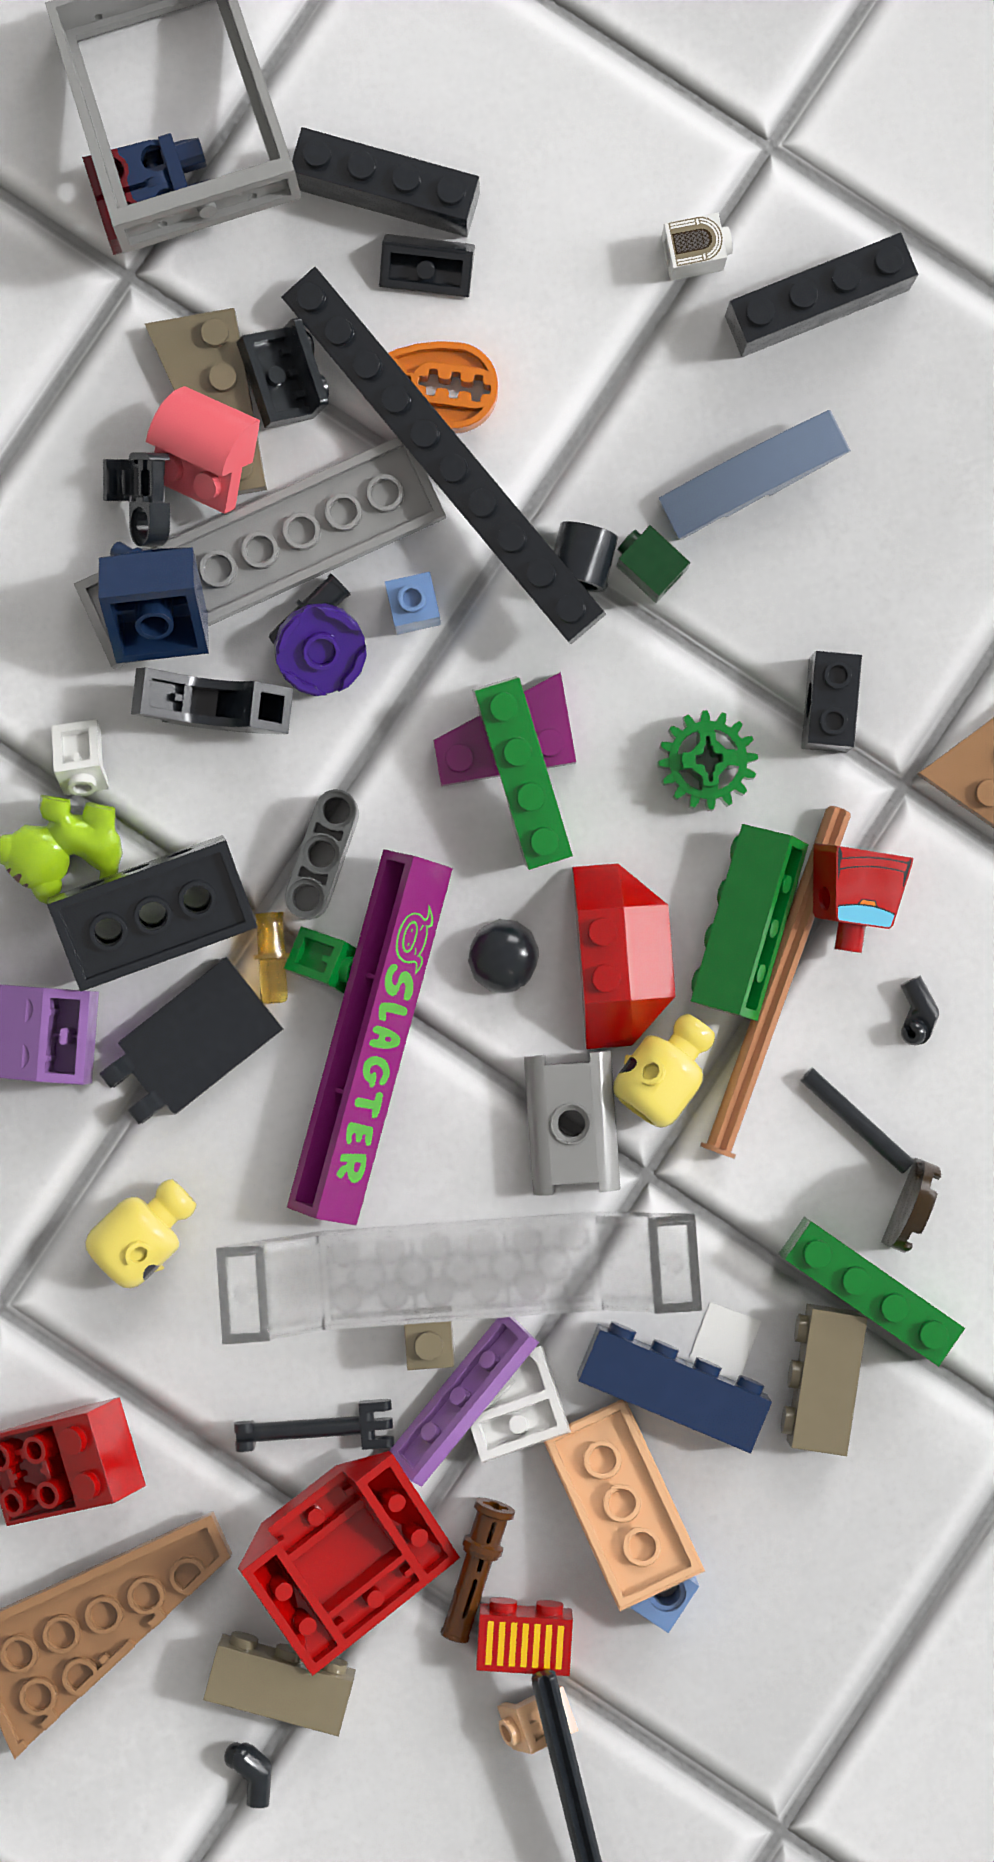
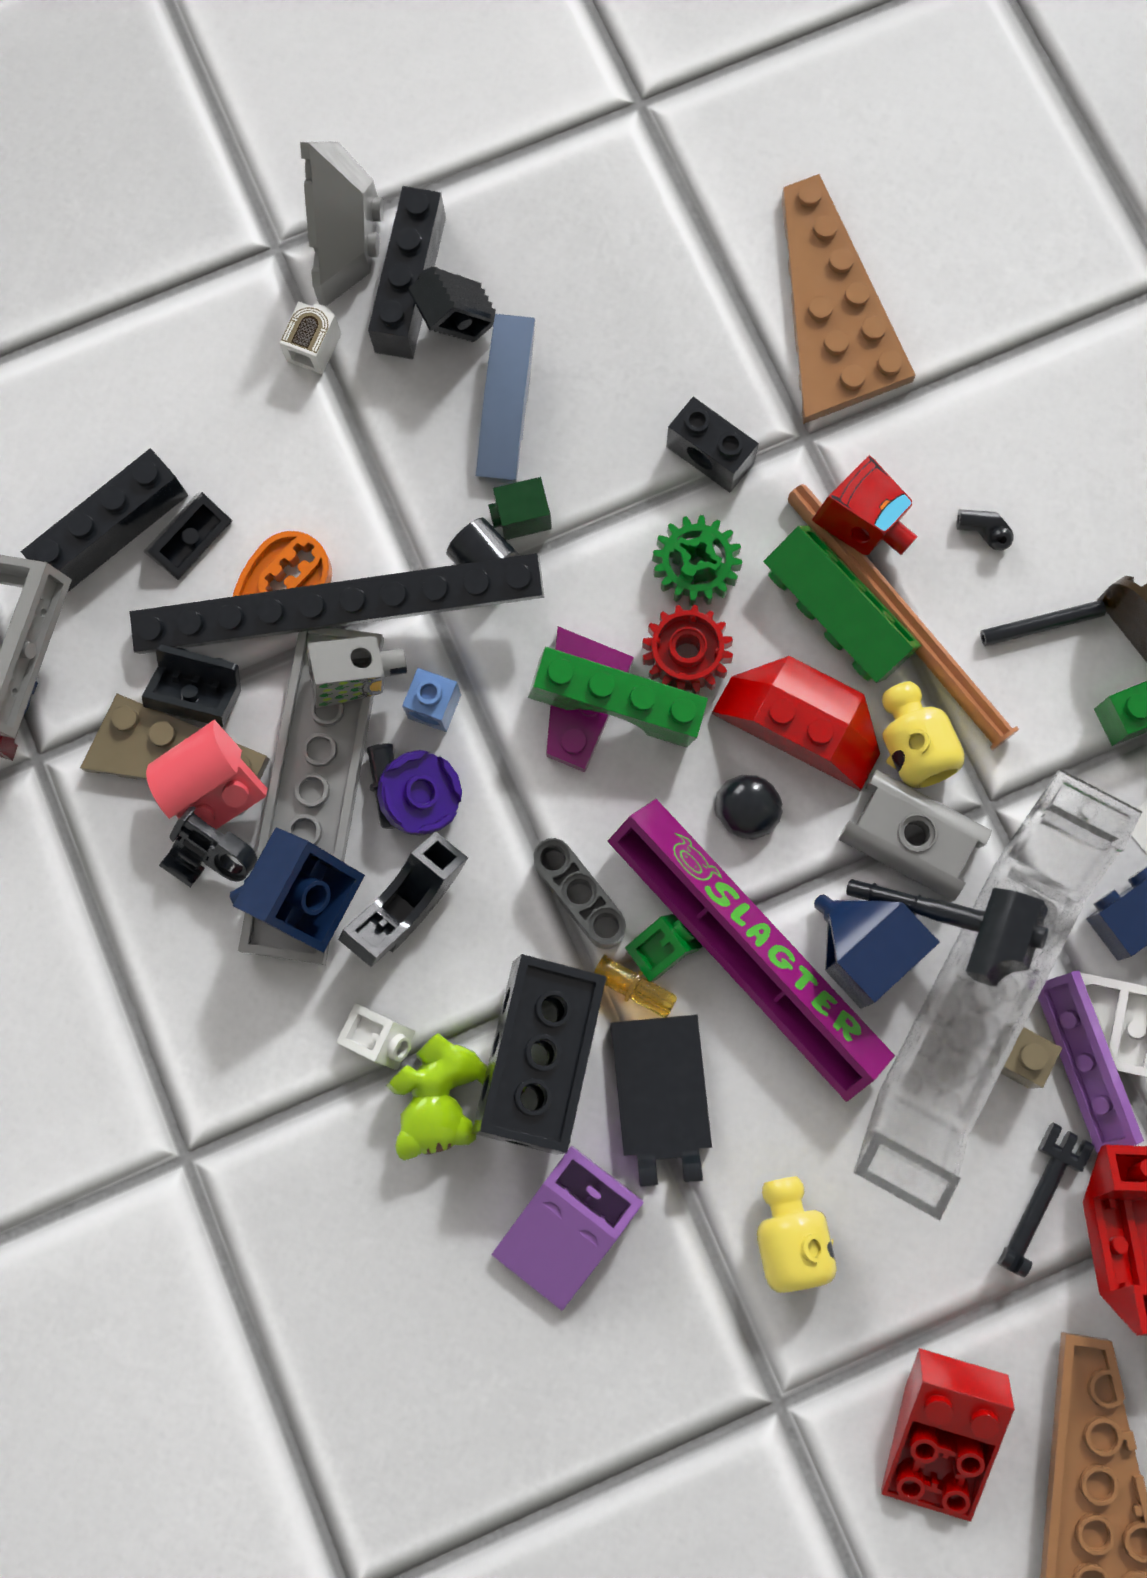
camera: 50 degrees left, 10 degrees down
(376, 495) = (350, 669): none -> light grey torso
(438, 1144) = (871, 945): none -> dark blue piece
(522, 1254) = (1006, 929): none -> black piece
(613, 782) = (687, 628): none -> red gear
(811, 363) = (452, 304): none -> black brick
(831, 191) = (340, 218): none -> light grey wedge

